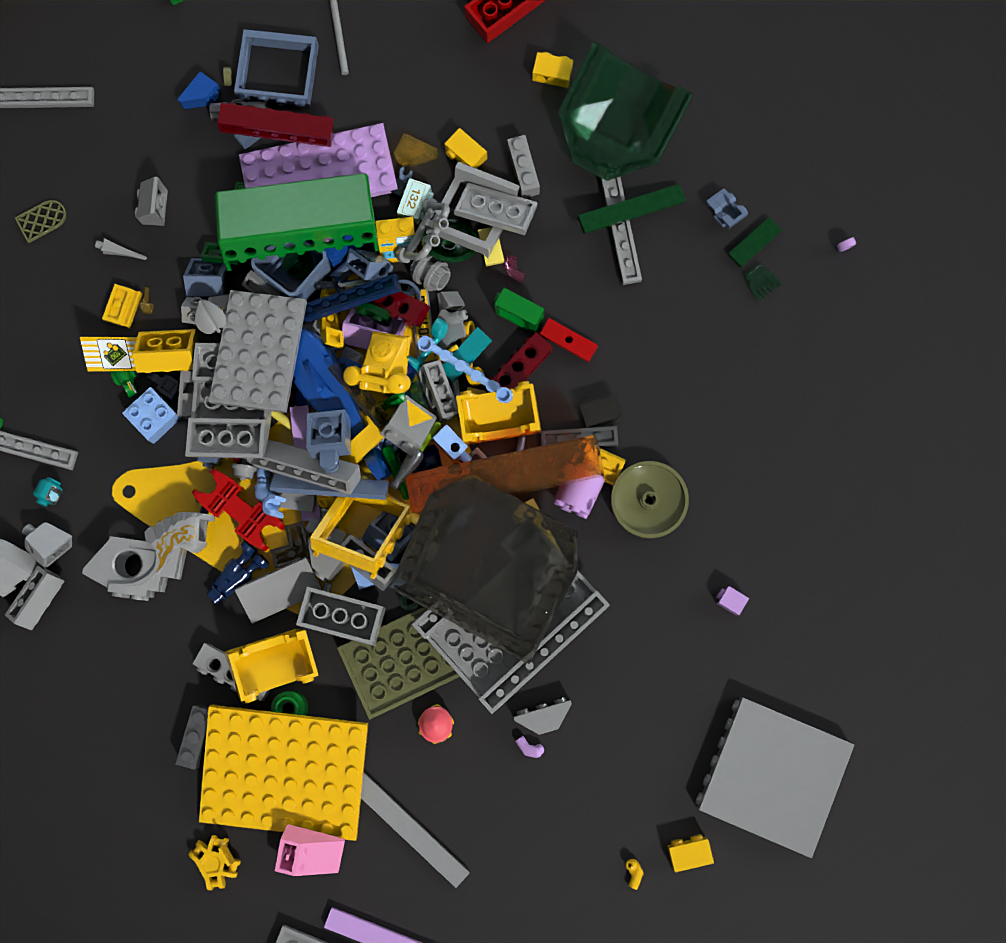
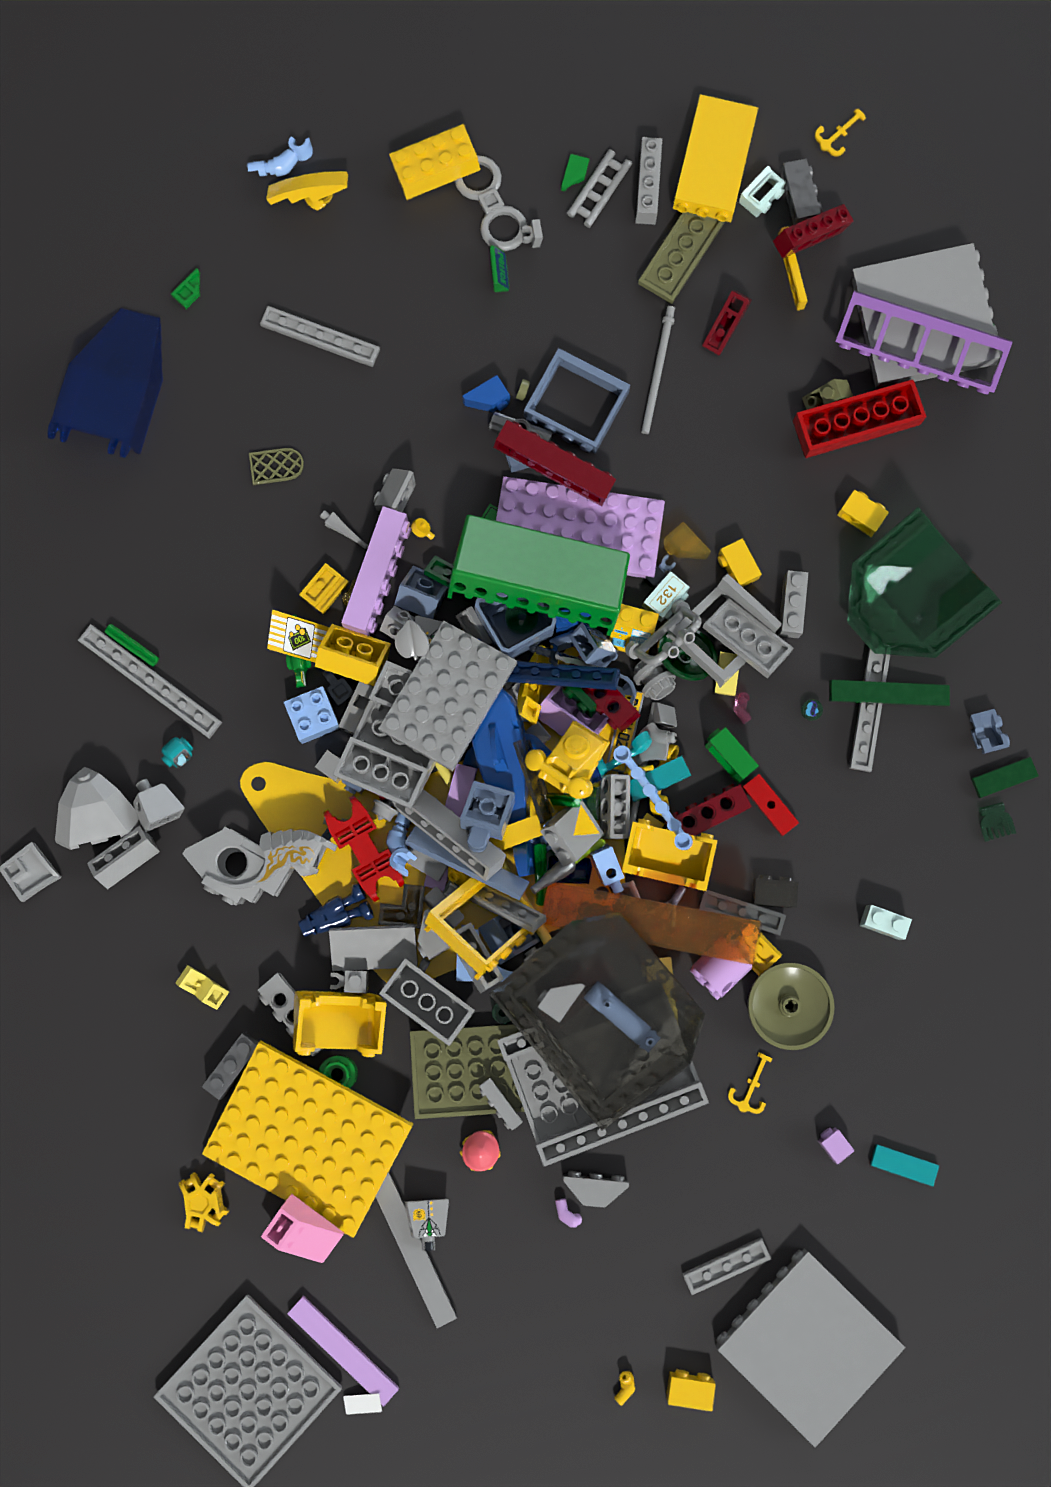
camera: 15 degrees right, 0 degrees up
(145, 681) = (202, 987): none -> light yellow slope
(160, 273) = (376, 572): none -> lavender brick
(178, 453) = (328, 764): none -> light grey brick
(186, 224) = (421, 528): none -> yellow piece
(272, 625) = (352, 981): none -> light grey brick
(379, 510) = (509, 908): none -> light grey tile
(412, 800) = (427, 1220): none -> light grey torso
(438, 678) = (500, 1103): none -> light grey piece
(450, 568) = (559, 1000): none -> light grey slope
(508, 561) = (622, 1016): none -> sand blue piece
(573, 248) = (812, 710): none -> clear green tile
(643, 598) = (743, 1105): none -> yellow piece
(680, 737) = (726, 1266): none -> light grey tile
(702, 399) = (885, 922): none -> light aqua brick
(795, 594) = (904, 1165): none -> teal tile

